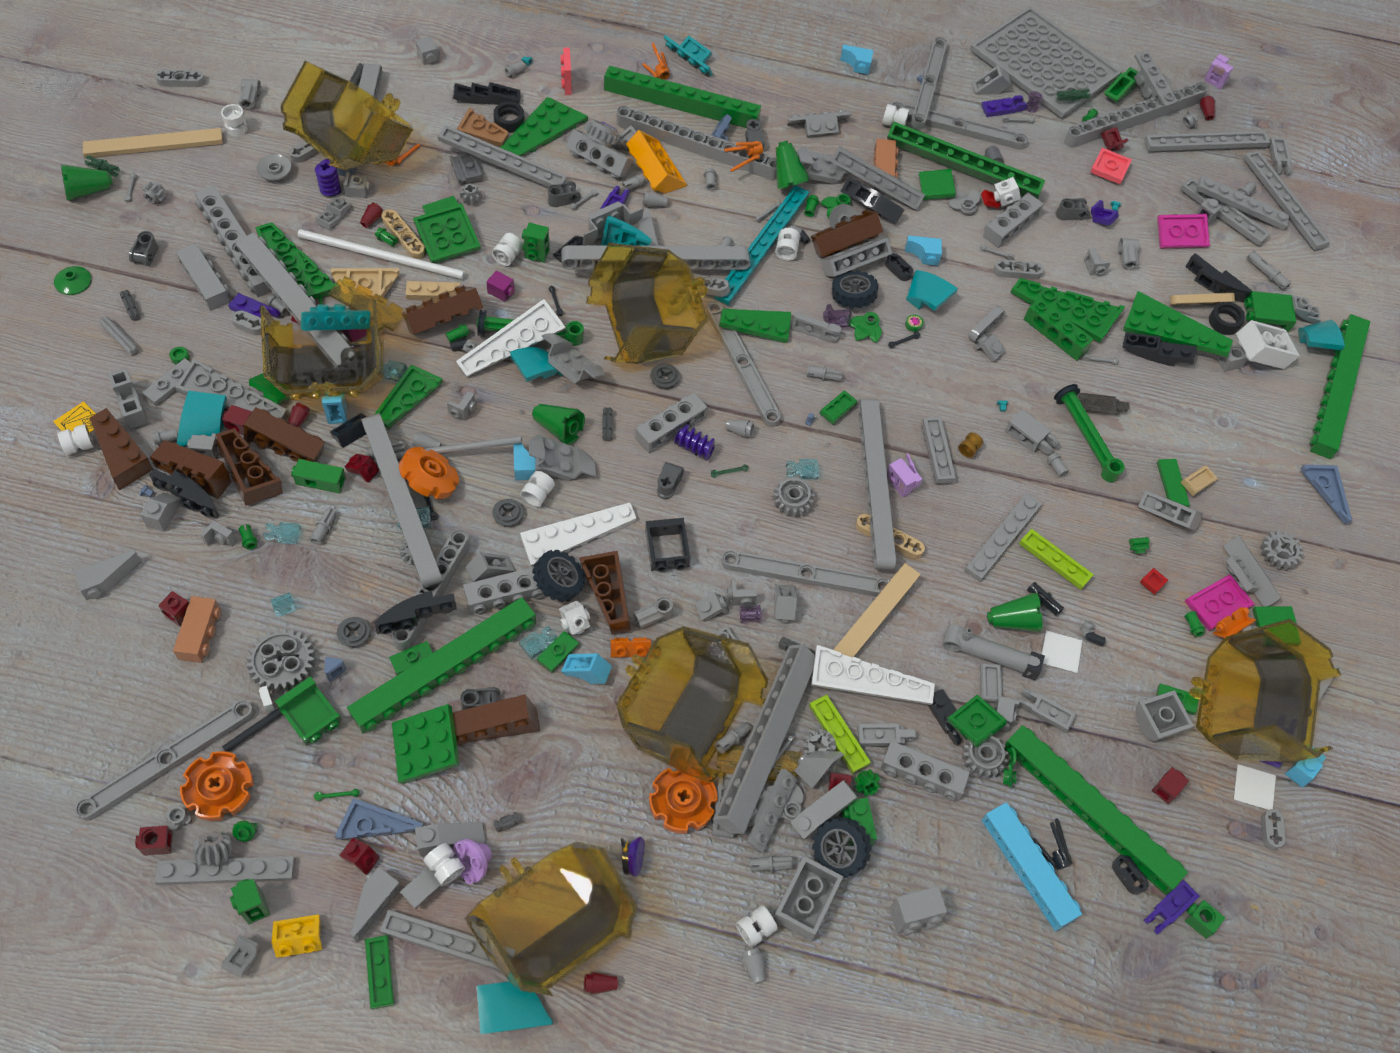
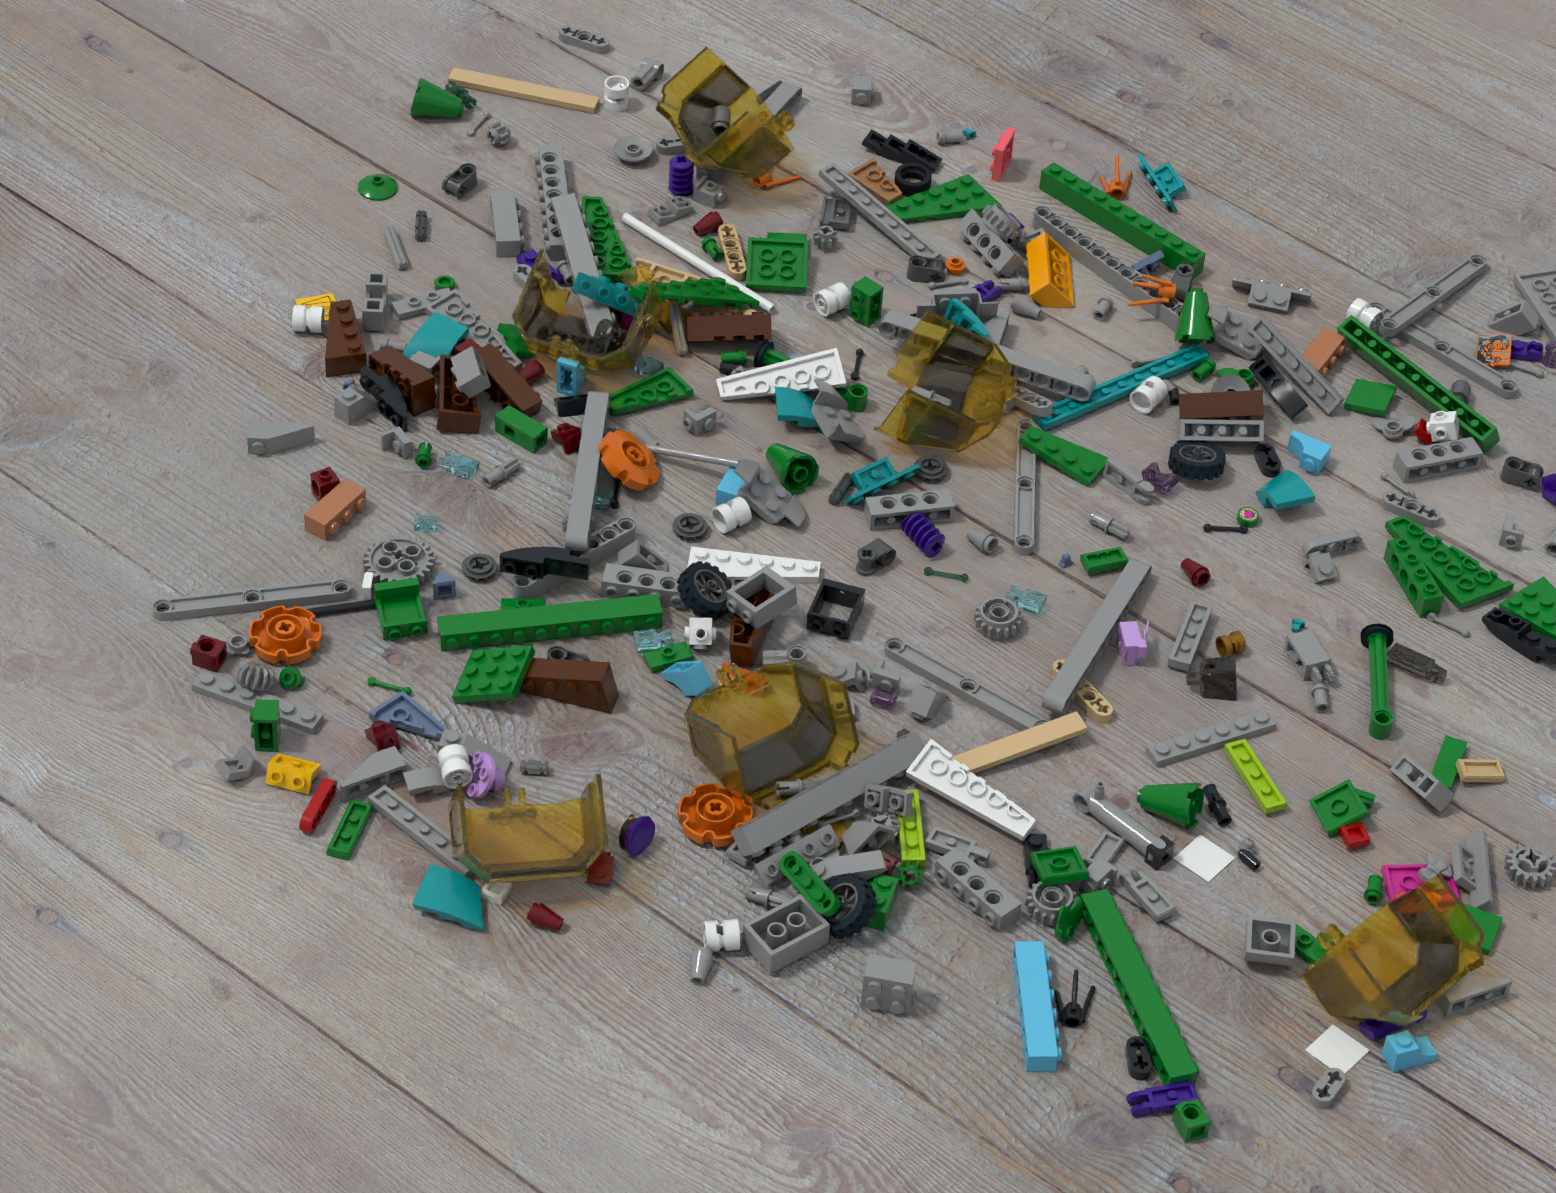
camera: 30 degrees right, 15 degrees down
(252, 445) = (470, 372): none -> light grey brick
(336, 118) = (720, 119): none -> flat silver brick
(339, 968) = (318, 805): none -> red beam
(399, 324) = (678, 329): none -> light grey axle
(403, 283) = (702, 292): none -> green wing
(500, 286) = (804, 330): magenta brick -> none
(582, 182) = (955, 266): none -> orange plate
(619, 551) = (783, 598): none -> light grey window
(629, 404) = (875, 476): none -> teal bracket
(633, 312) = (932, 395): none -> light grey axle
(806, 843) = (809, 884): none -> green plate
(813, 718) = (888, 799): none -> light grey slope
(858, 58) = (1363, 246): medium azure arch -> none
(865, 328) = (1186, 500): green plate -> none
(908, 389) = (1195, 572): none -> dark red cone
(982, 482) = (1216, 678): none -> clear smoke torso
(995, 112) = (1494, 349): none -> piece
(1131, 561) = (1339, 807): none -> green tile
(1170, 785) = (1237, 1005): dark red brick -> none
(1227, 584) = (1435, 866): none -> light grey piece

